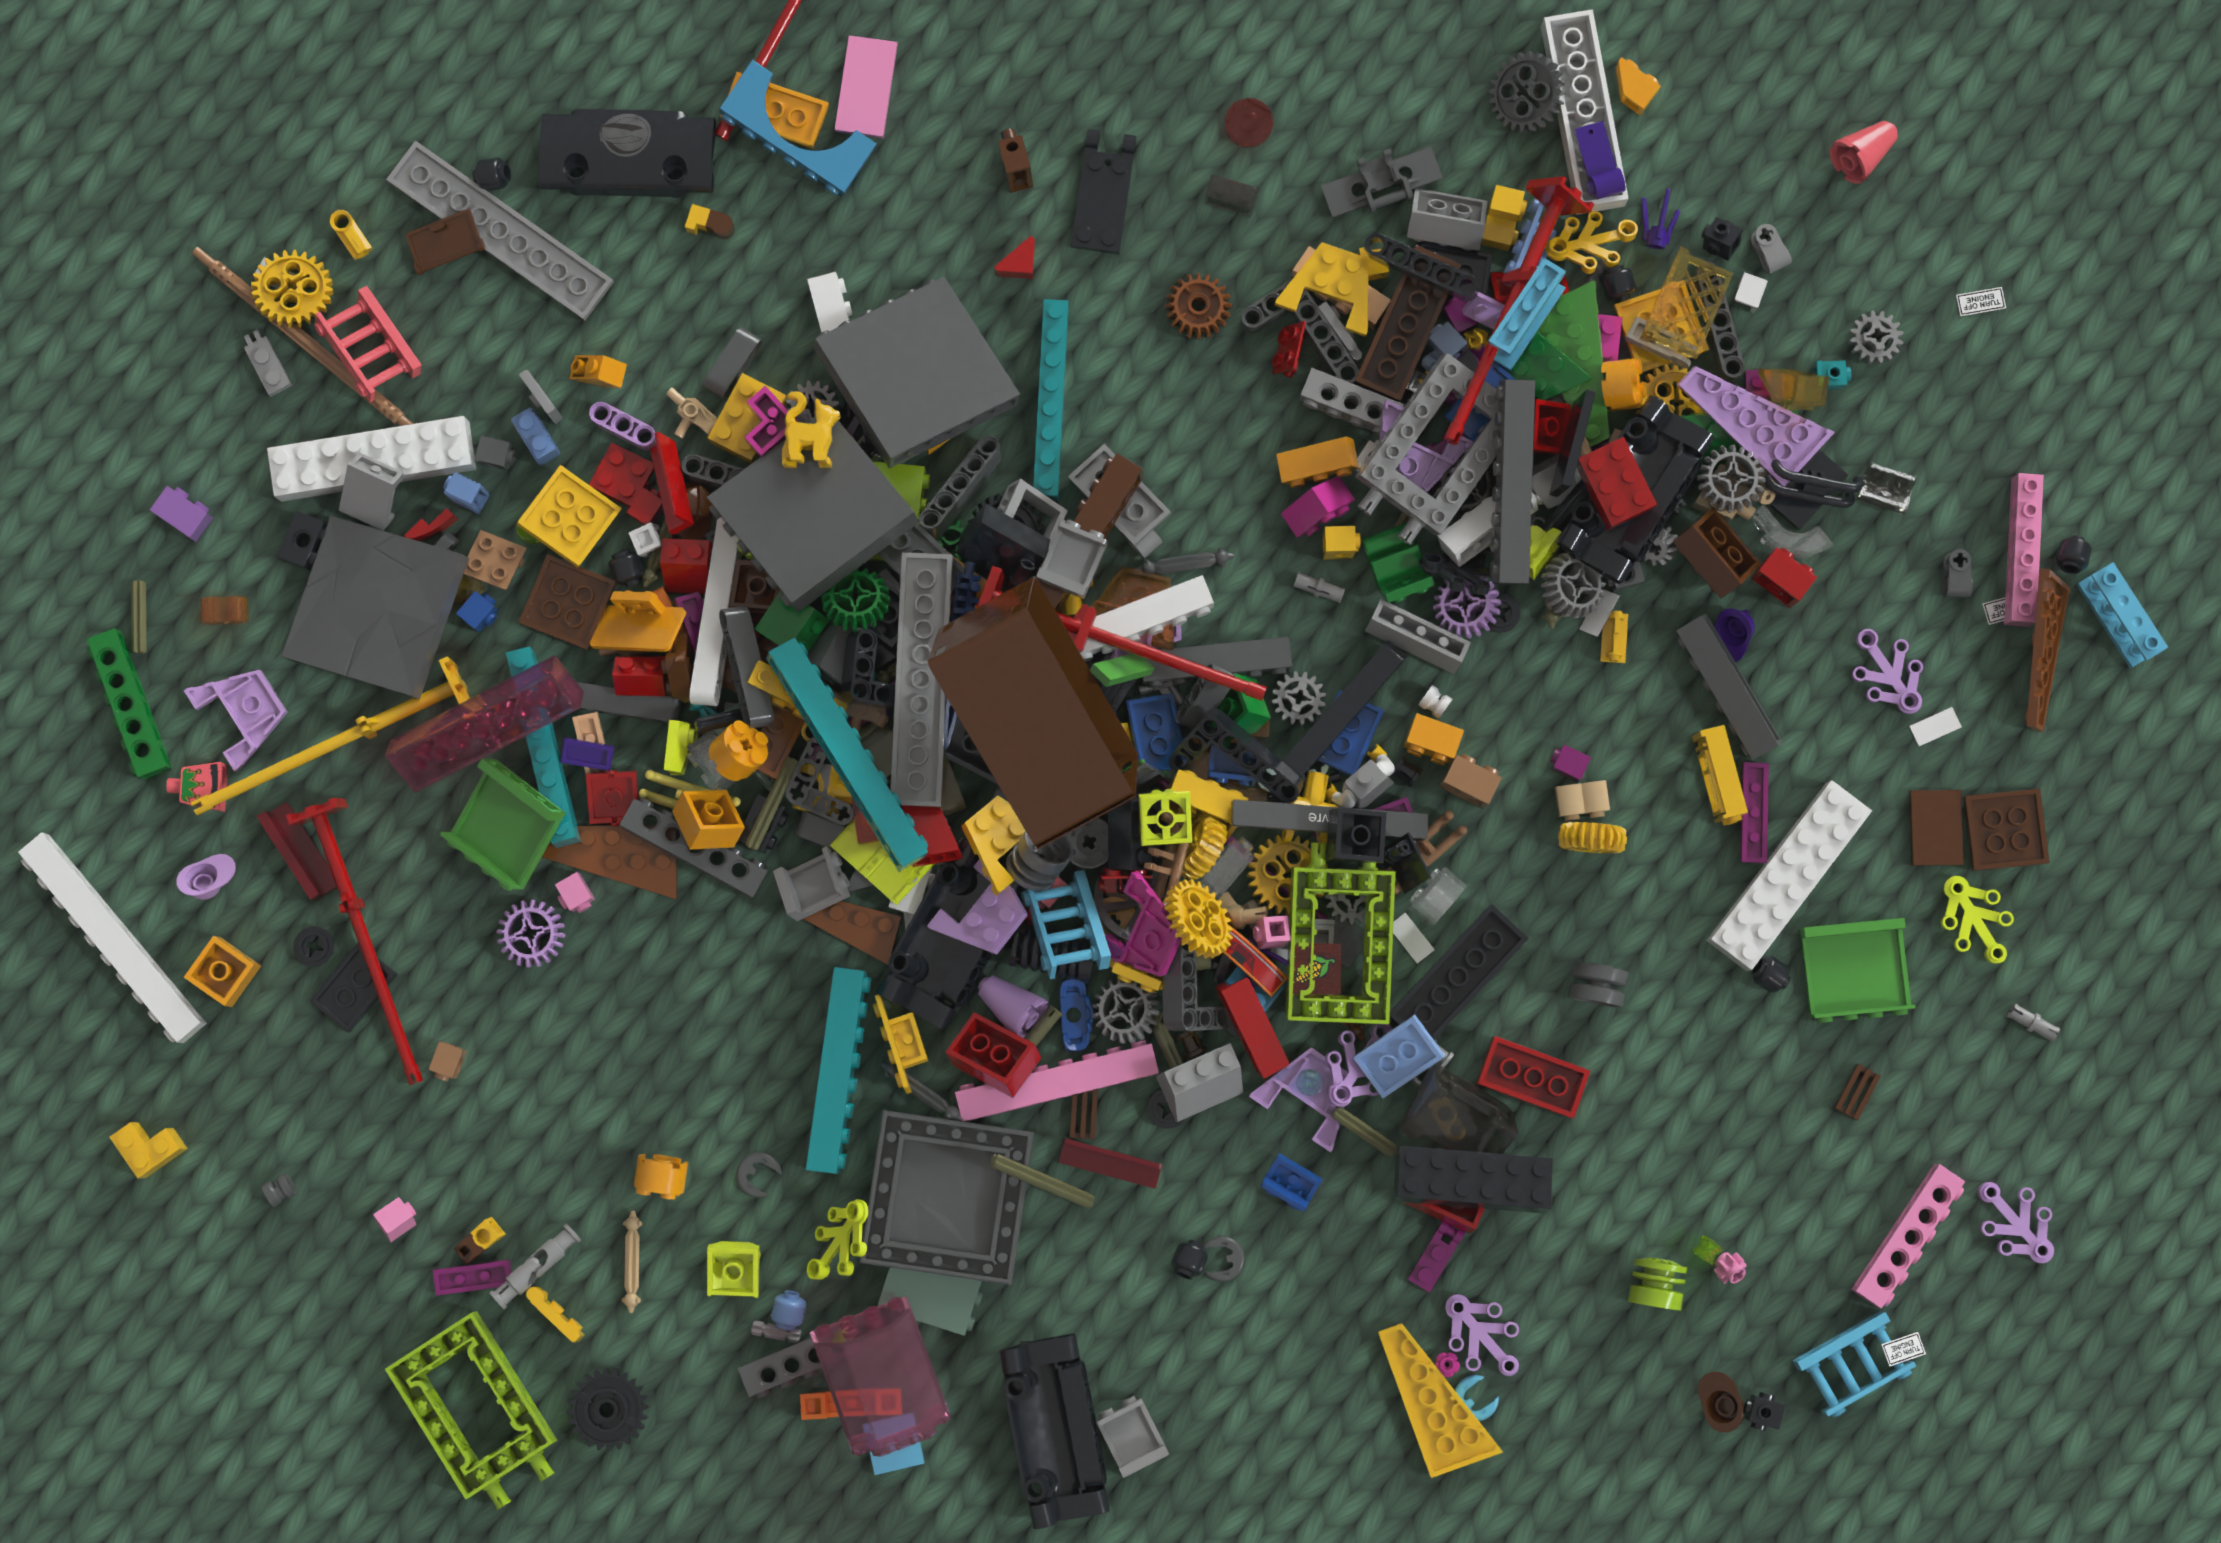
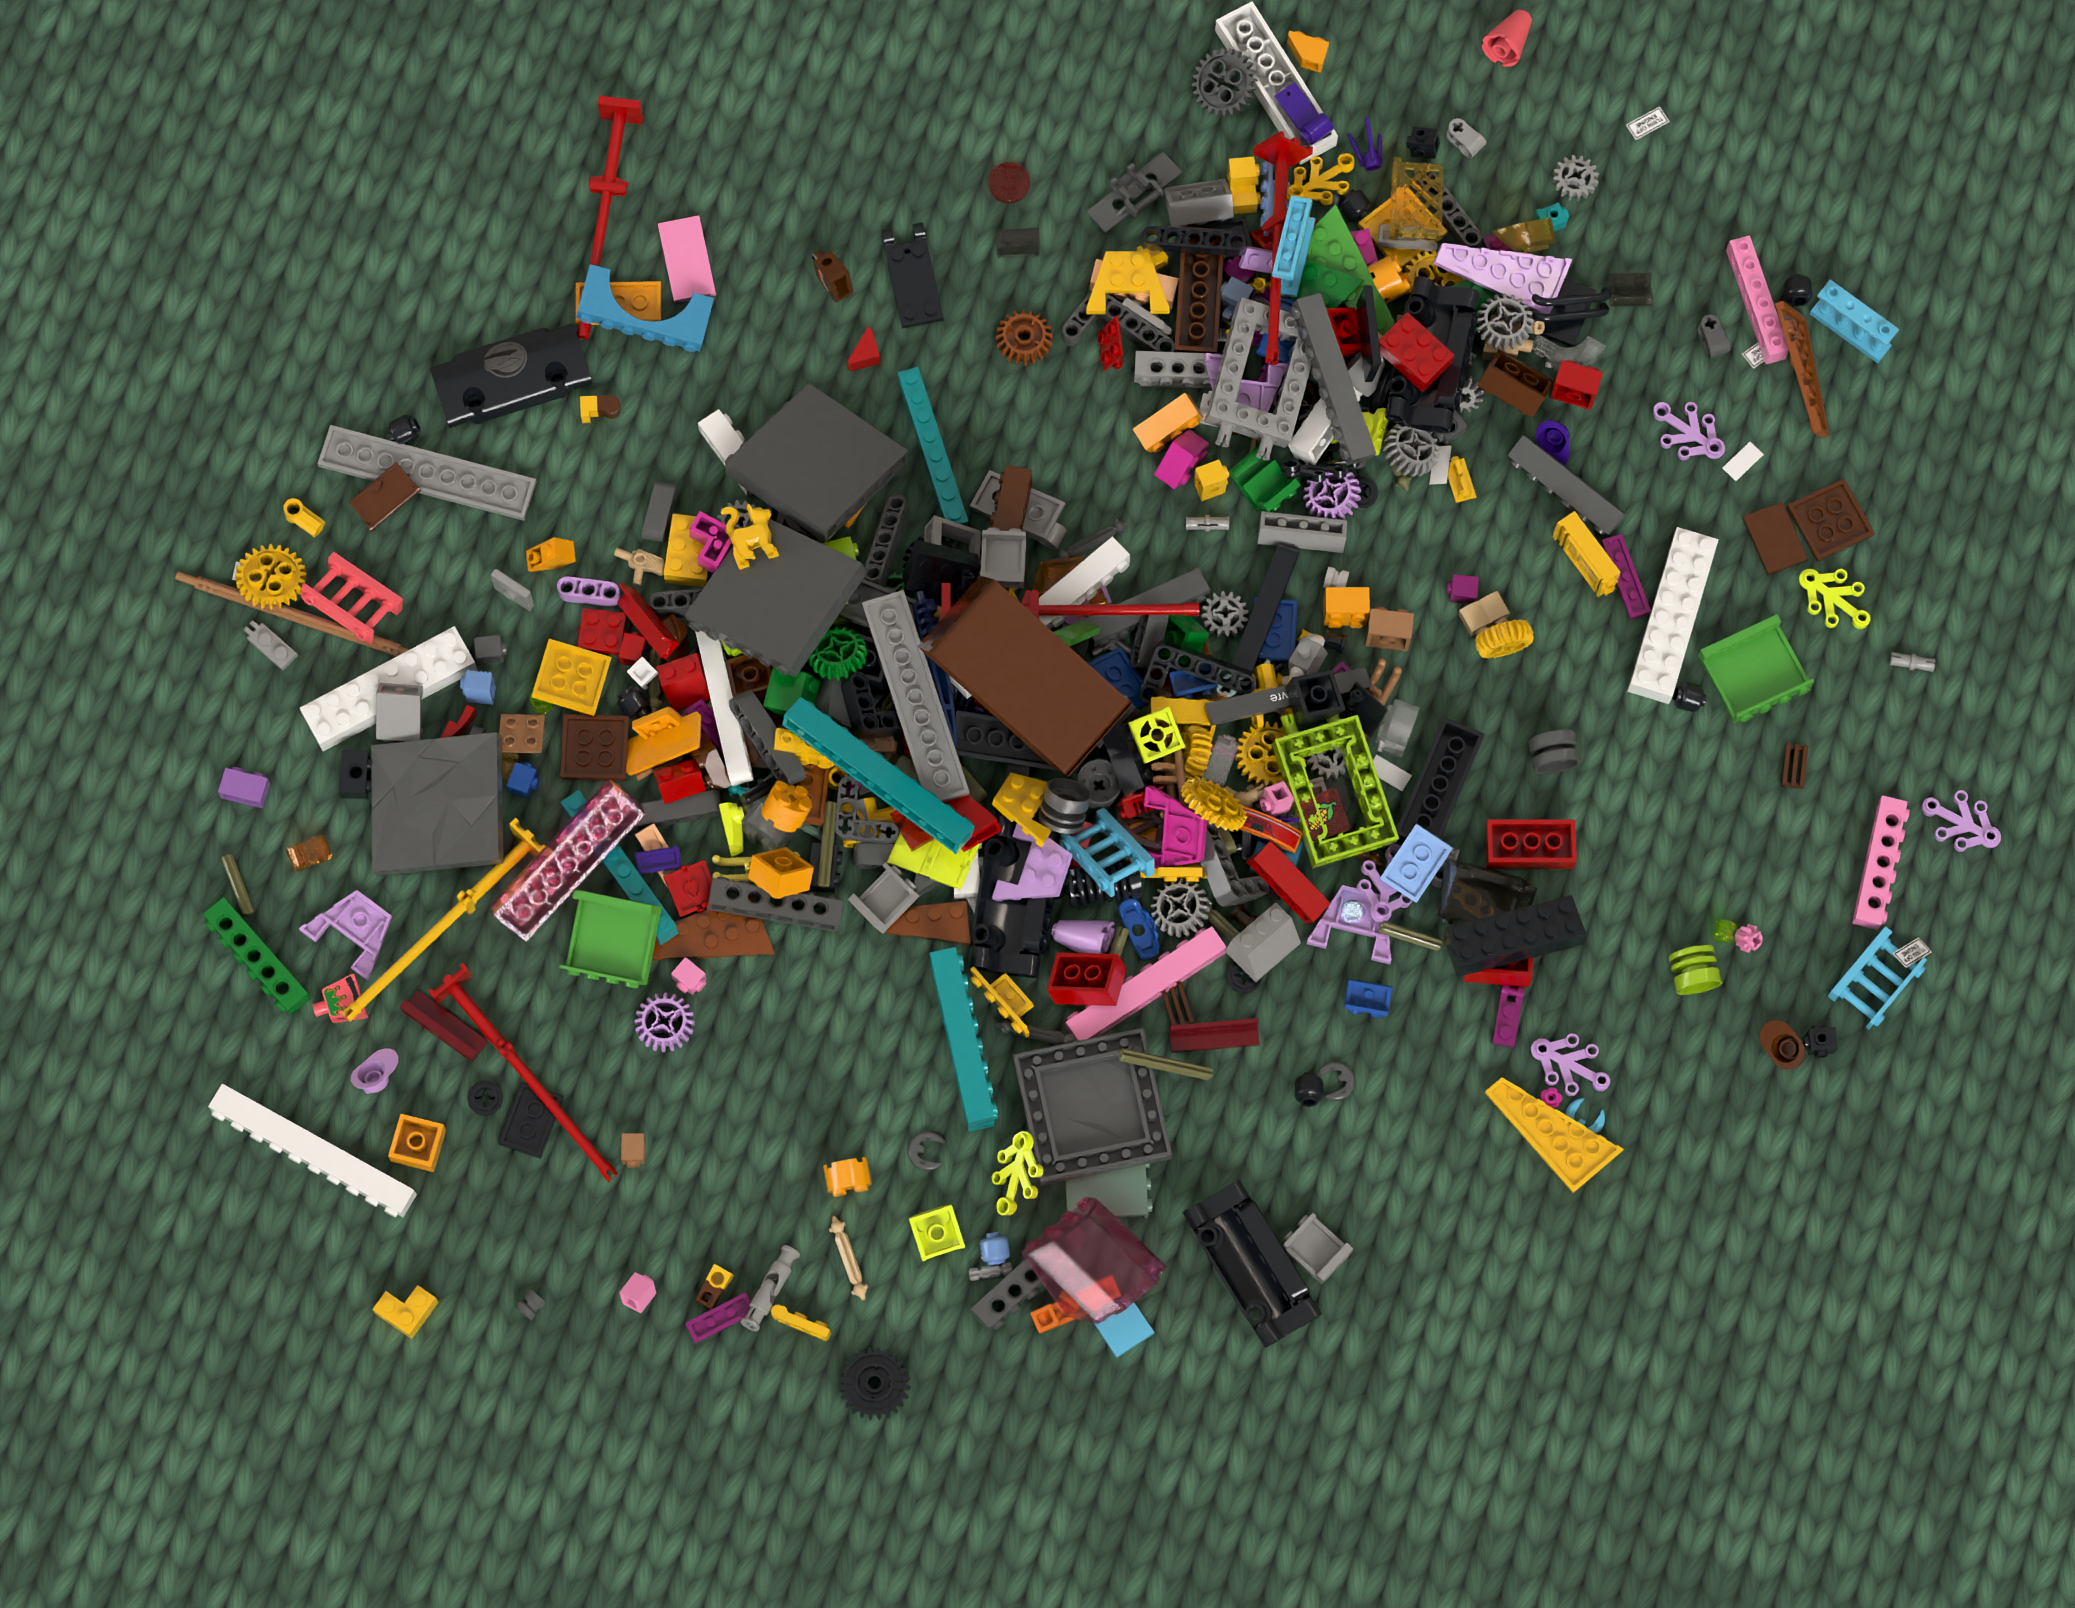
camera: 25 degrees left, 10 degrees down
(440, 1427) = (820, 1424): lime brick -> none
(535, 436) = (518, 624): medium blue brick -> none
(1750, 291) = (1462, 175): white panel -> none

